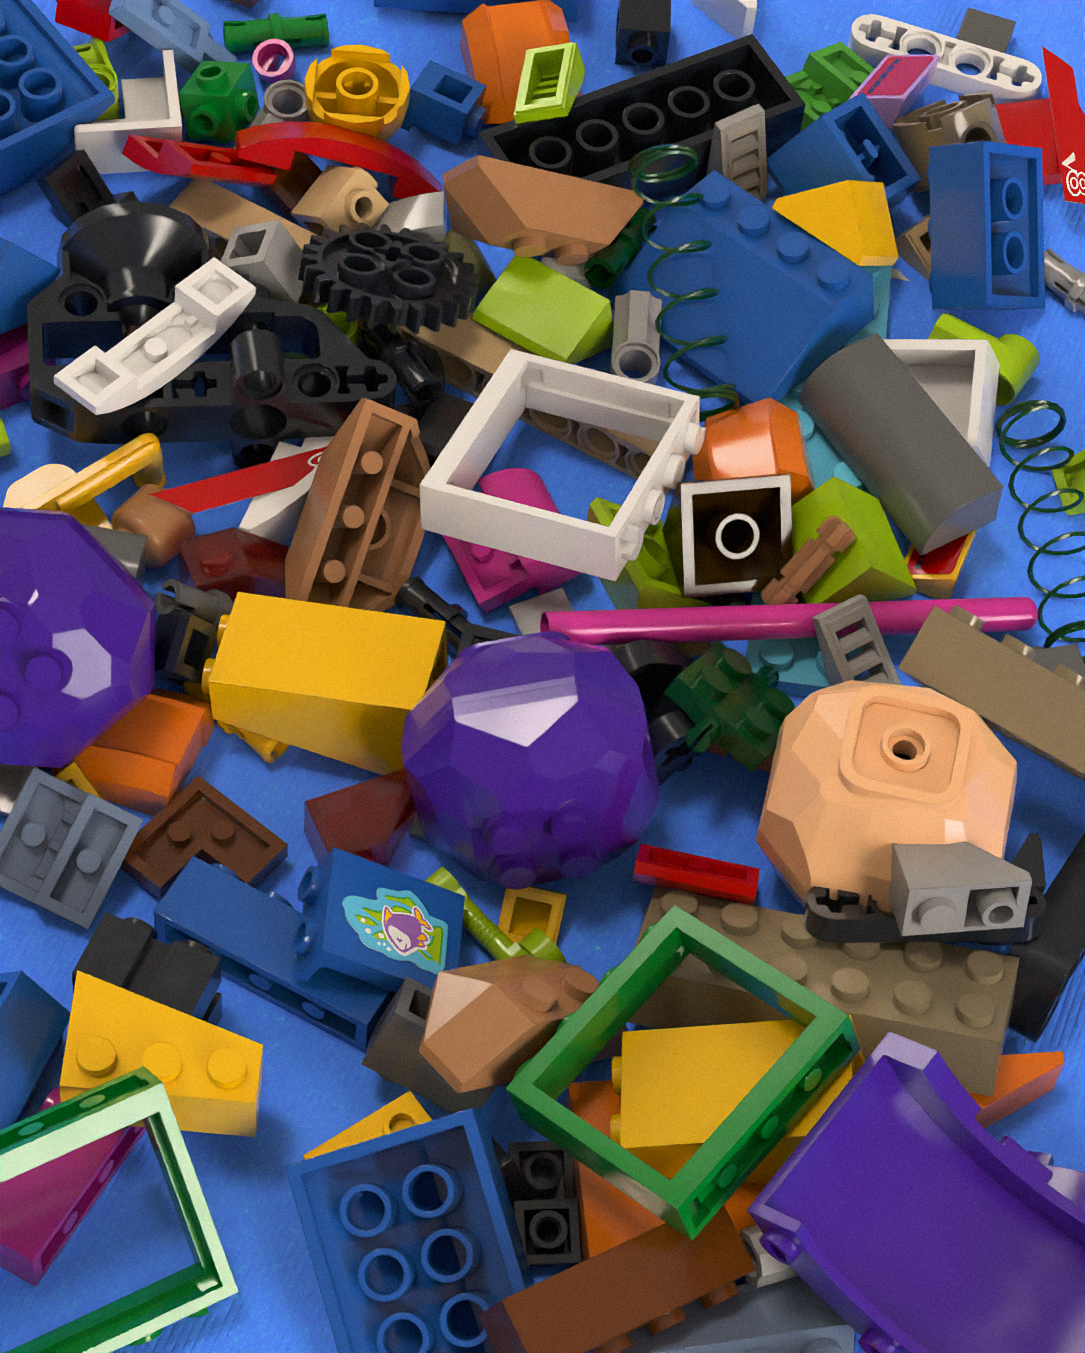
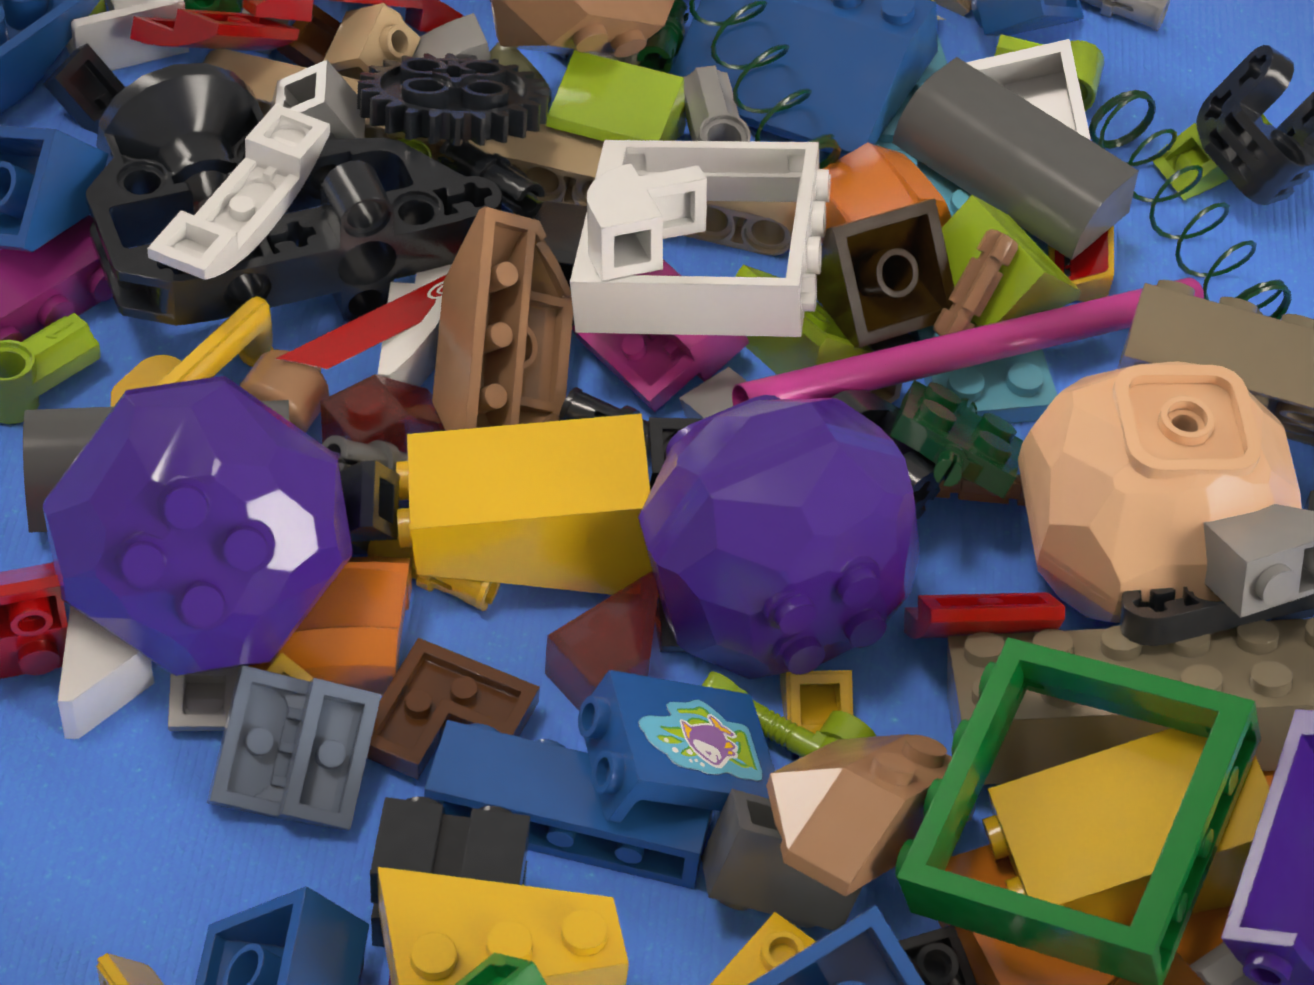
camera: 15 degrees left, 5 degrees down
(491, 432) = (635, 213): none -> white brick
(868, 636) = (1067, 359): light grey slope -> none

